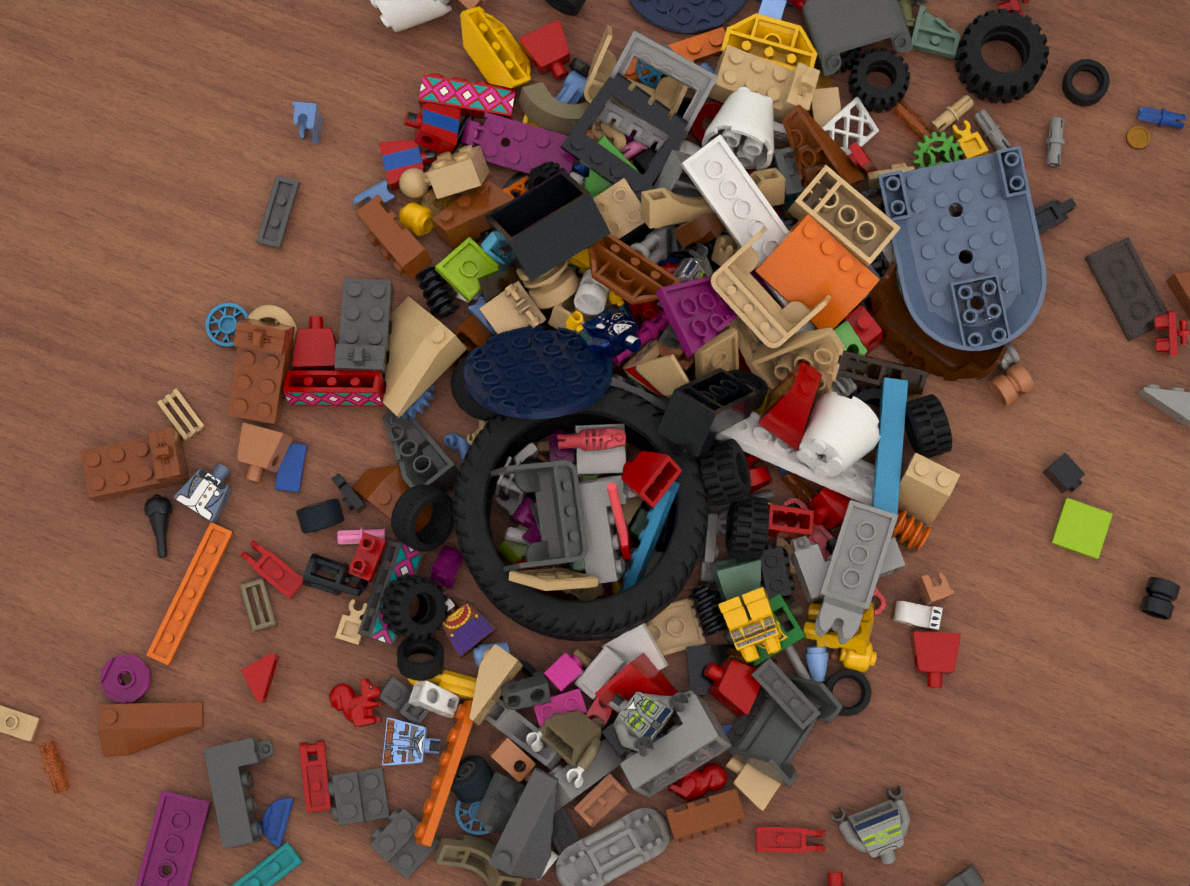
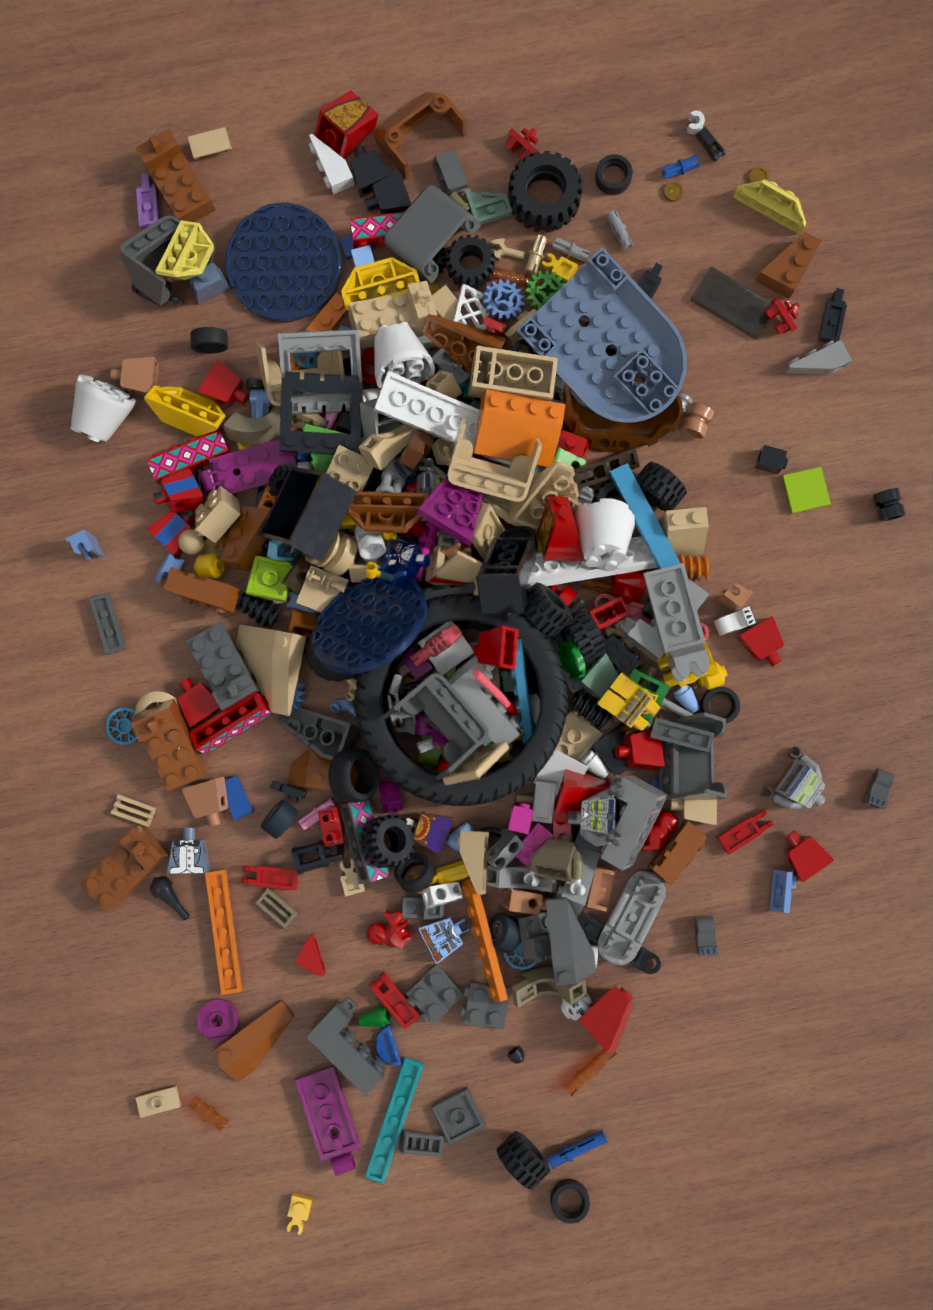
camera: 30 degrees left, 5 degrees up
(285, 781) = (375, 1018): none -> green cone
(677, 669) = (595, 764): none -> white cone
(720, 543) = (571, 659): none -> green tile
(881, 146) = (503, 300): none -> medium blue gear
(923, 91) = (505, 250): none -> tan bar

